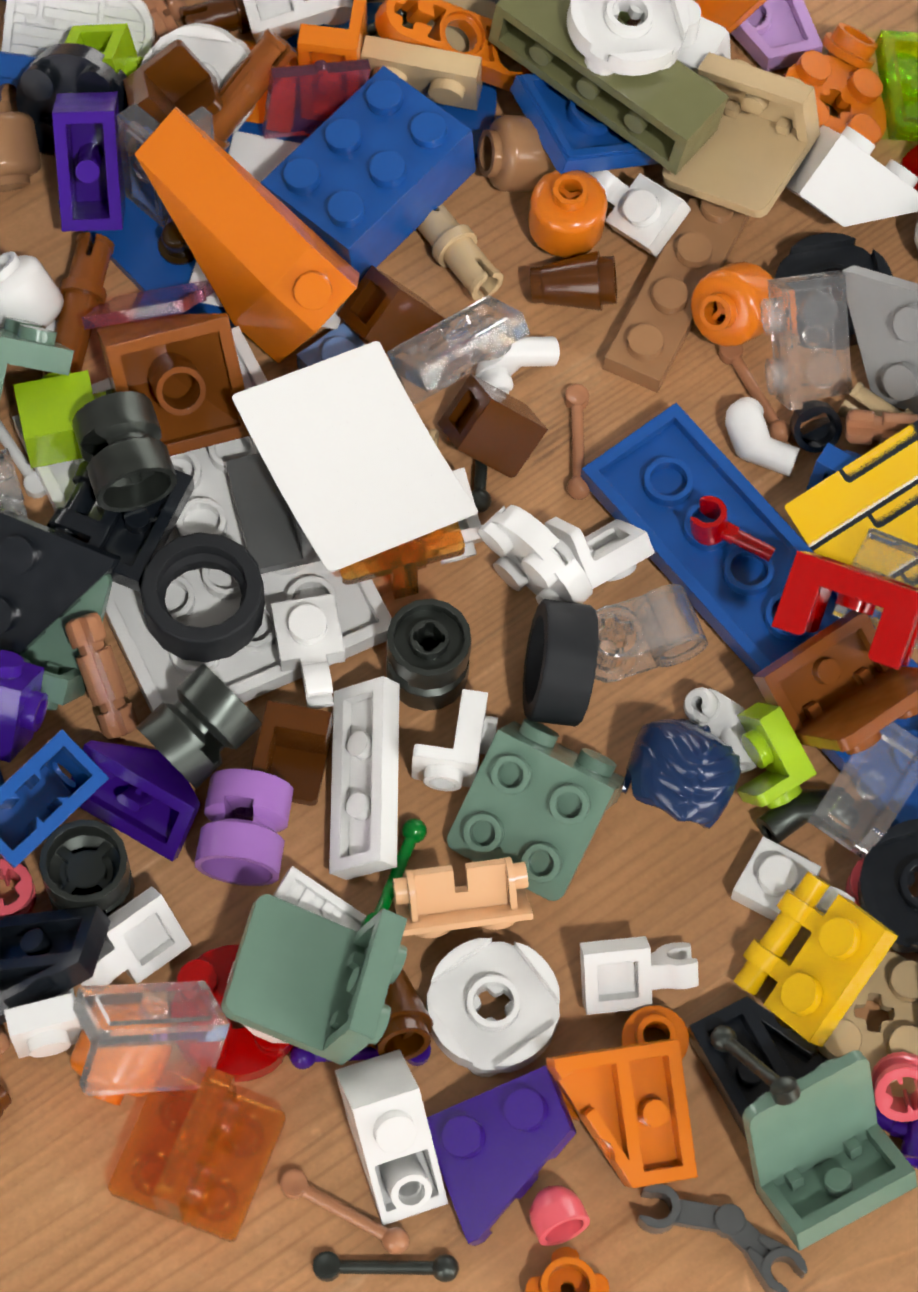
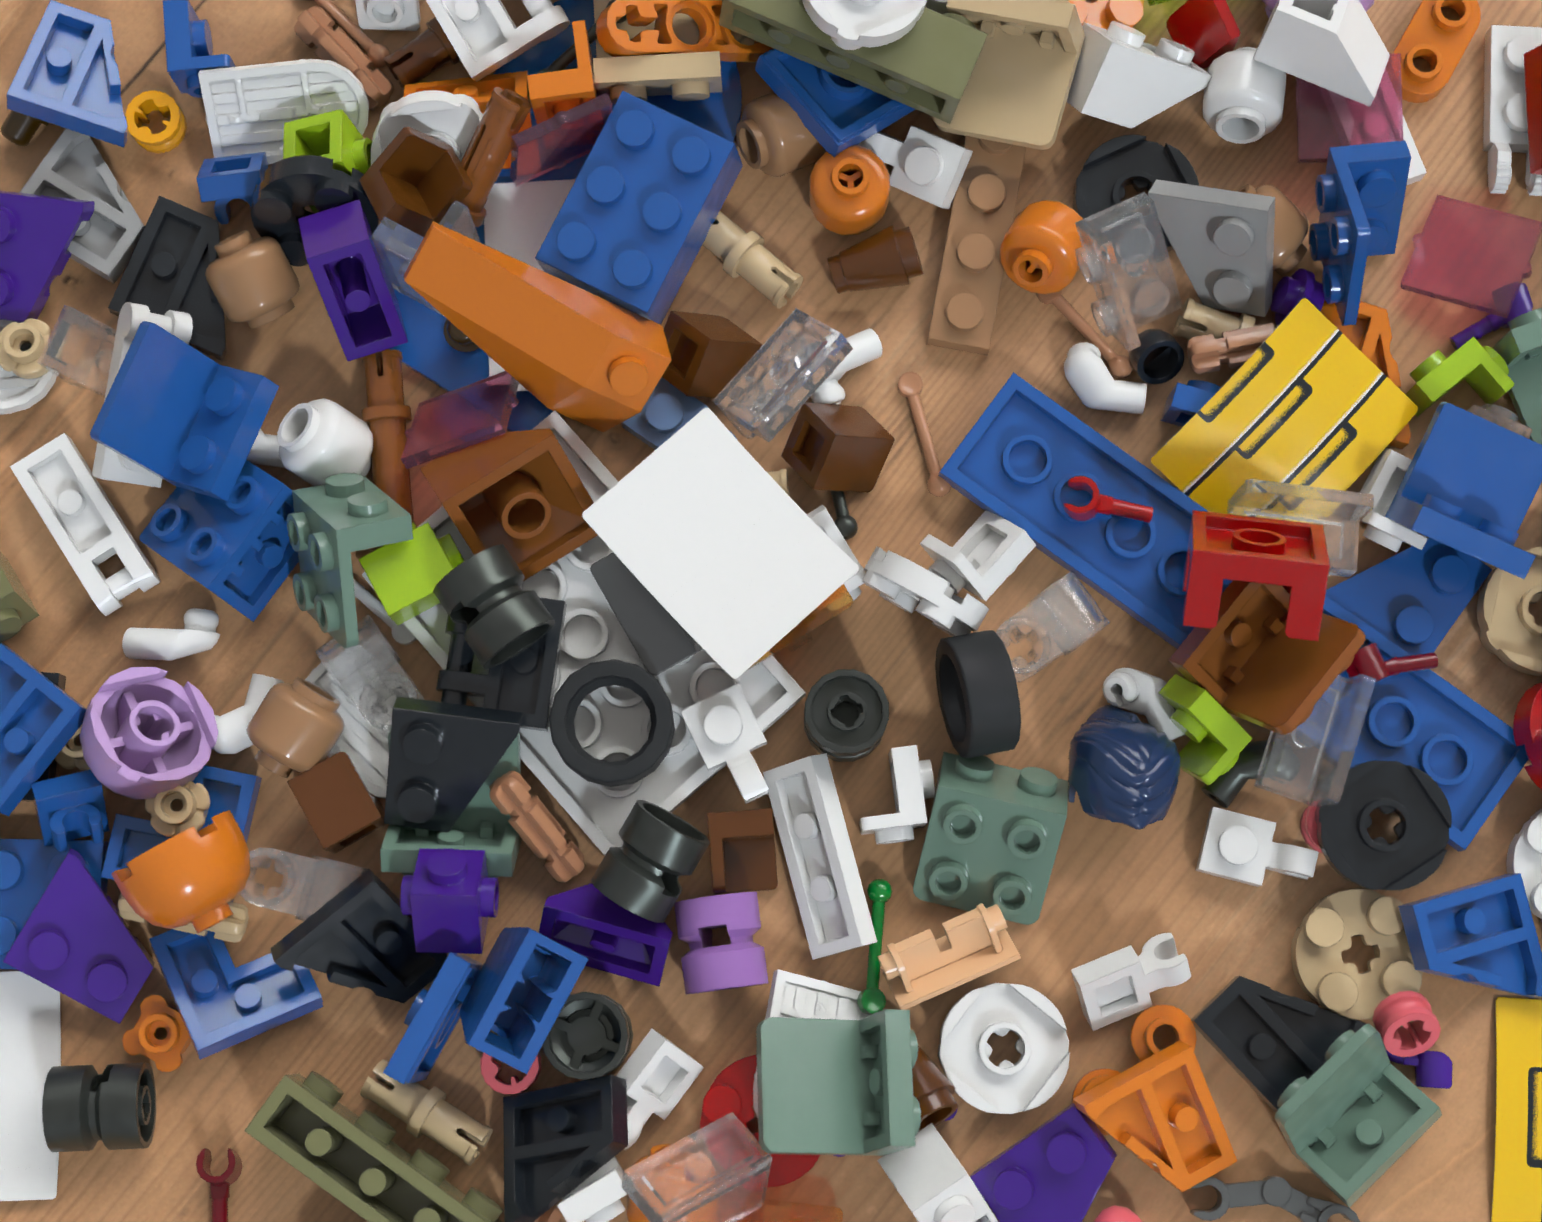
camera: 10 degrees left, 15 degrees up
(783, 1089) = (1307, 1084): pearl dark grey hinge -> none
(829, 967) = (1313, 933): yellow plate -> none

